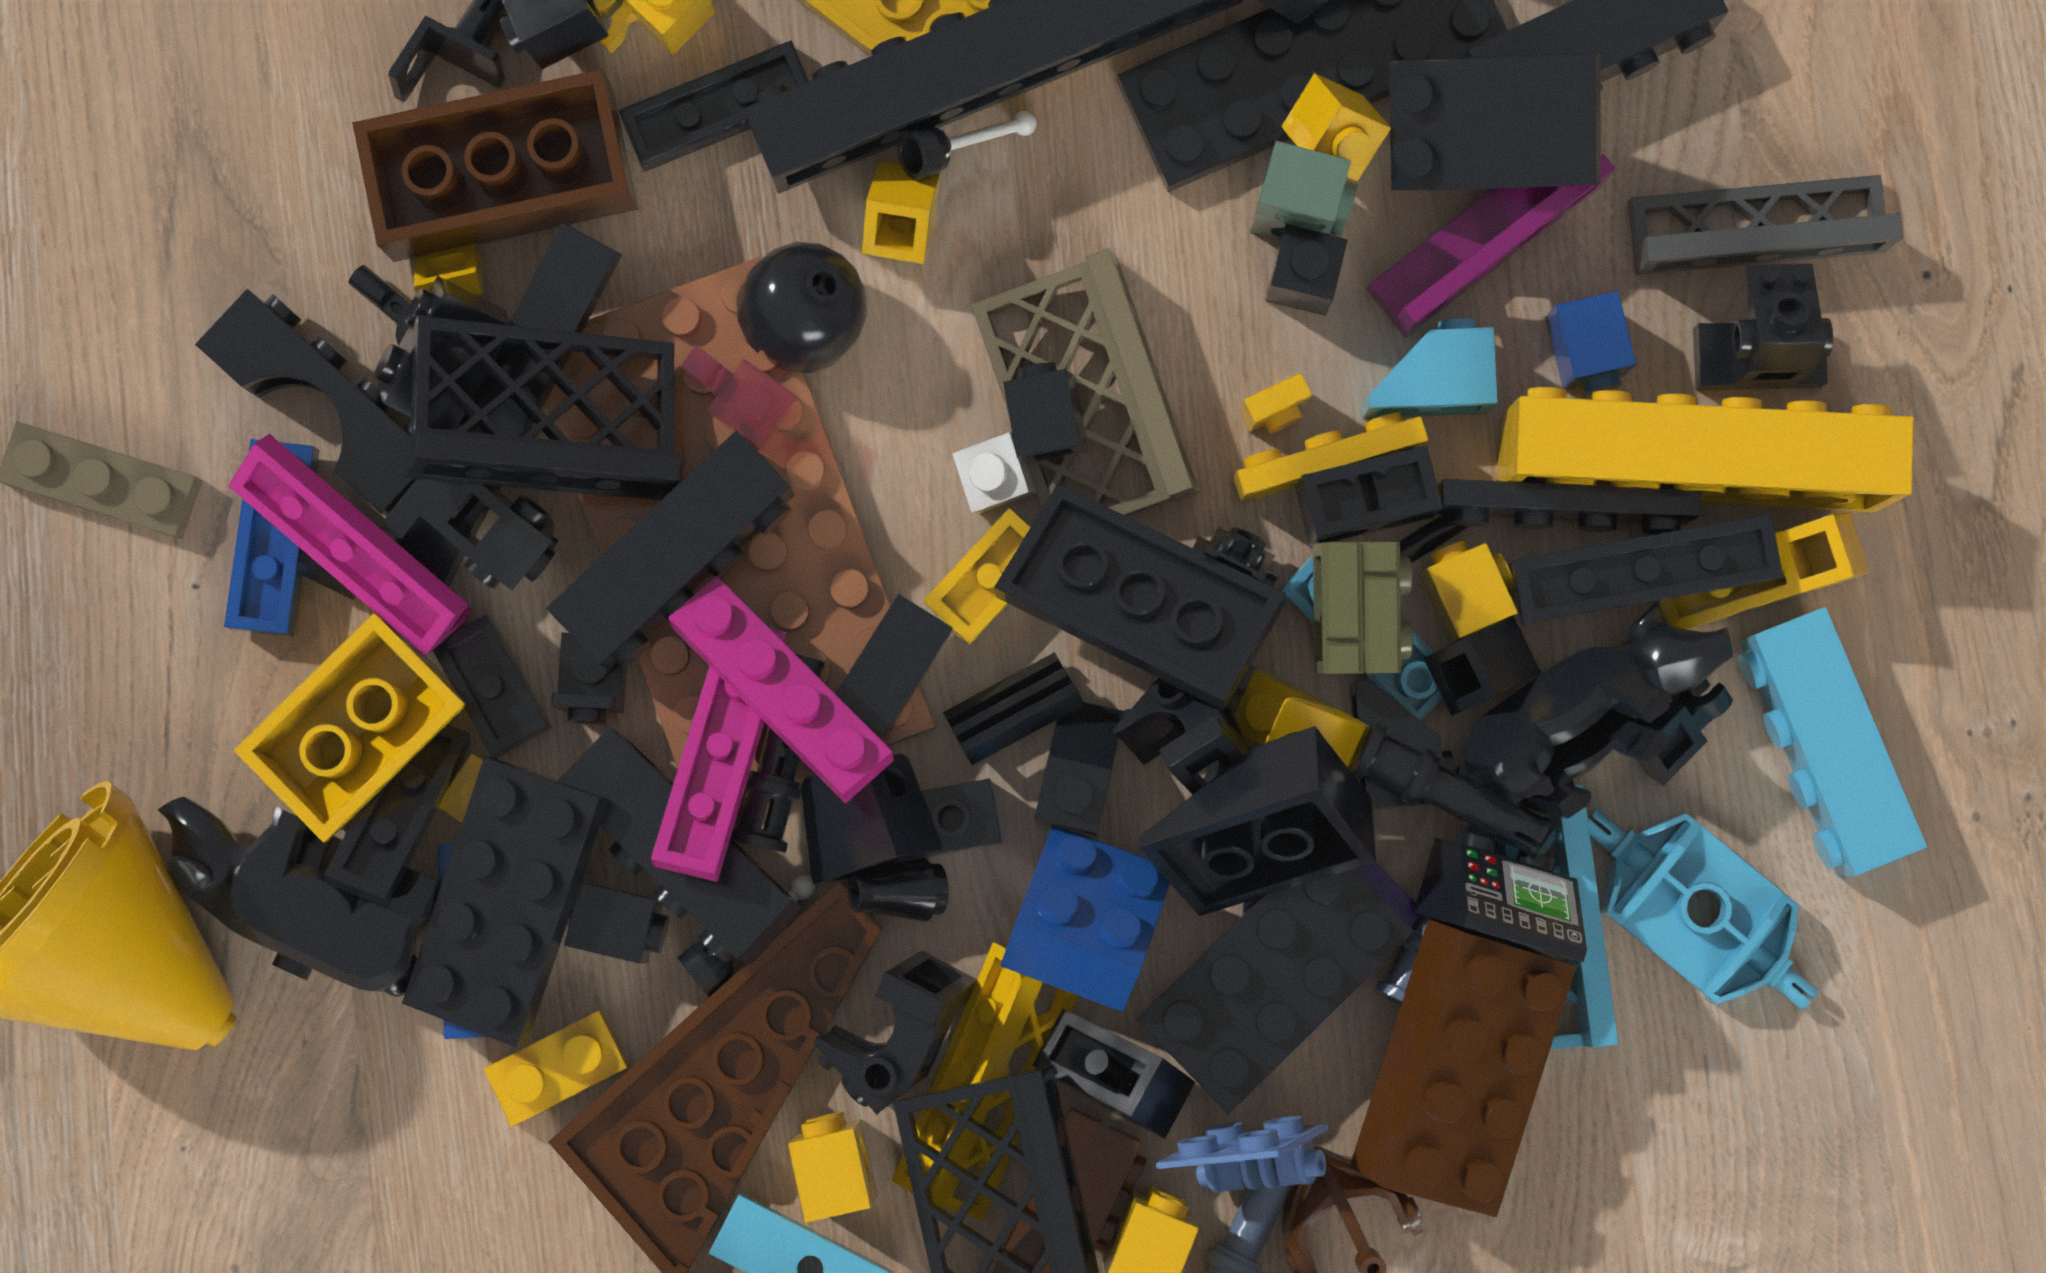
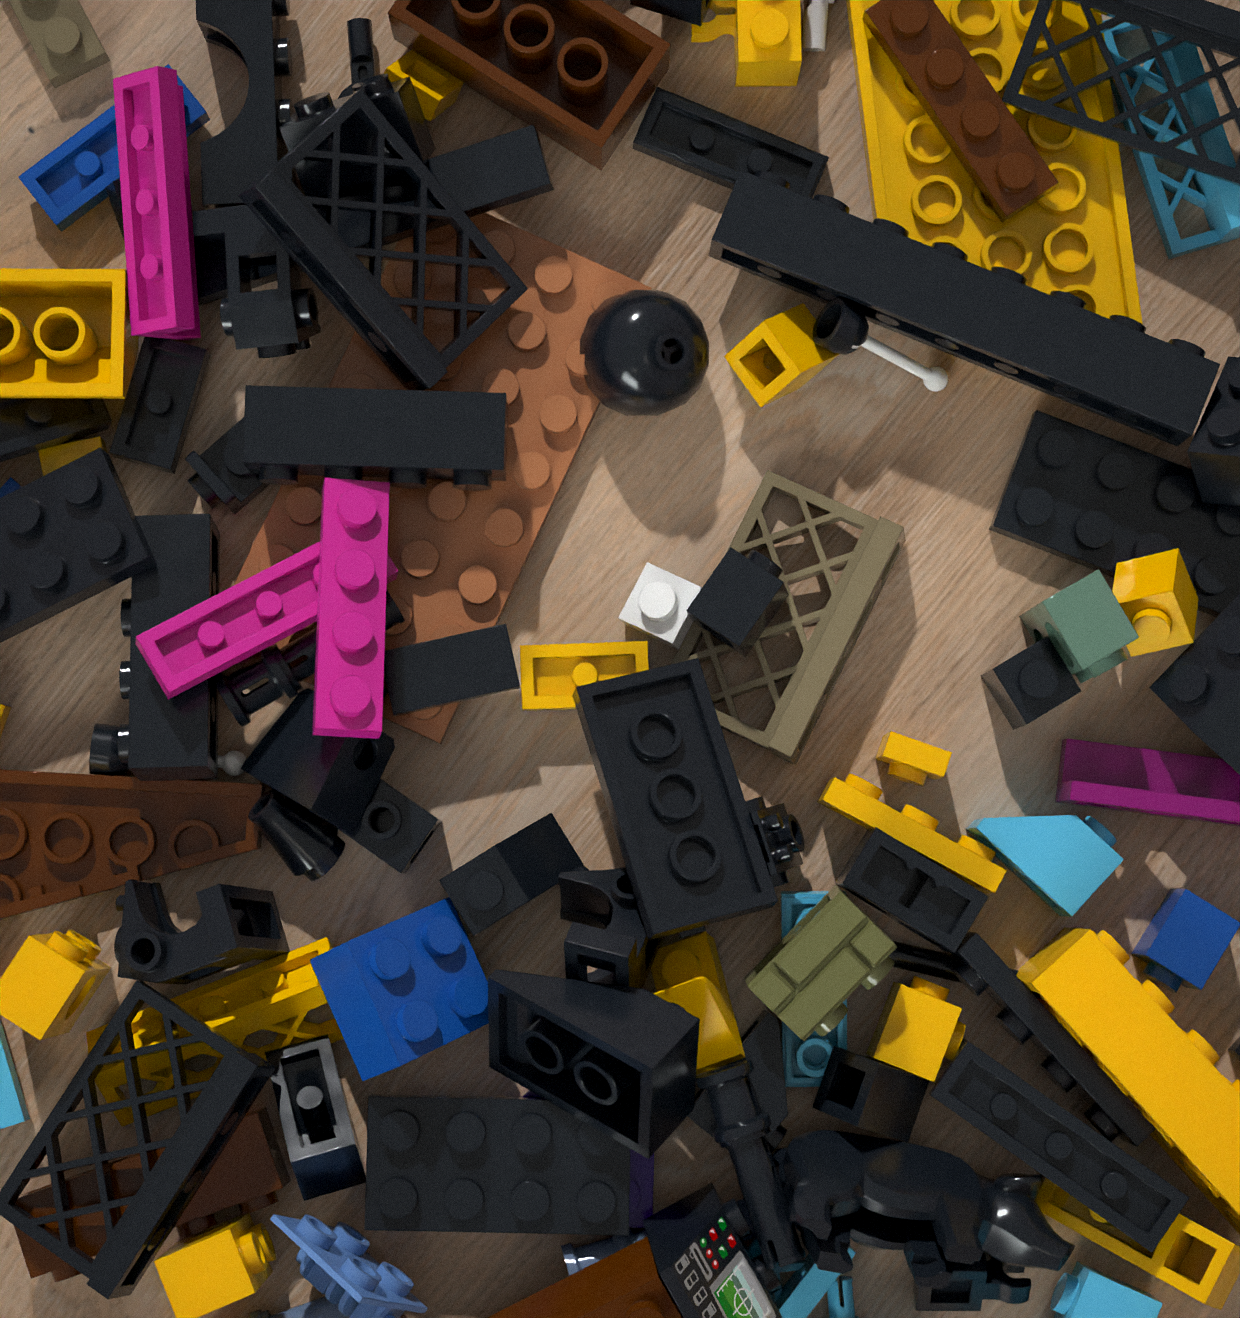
camera: 35 degrees right, 0 degrees up
(616, 923) = (76, 657): black brick -> none
(744, 399) = (539, 378): clear pink plate -> none
(1013, 708) = (510, 779): black tile -> none

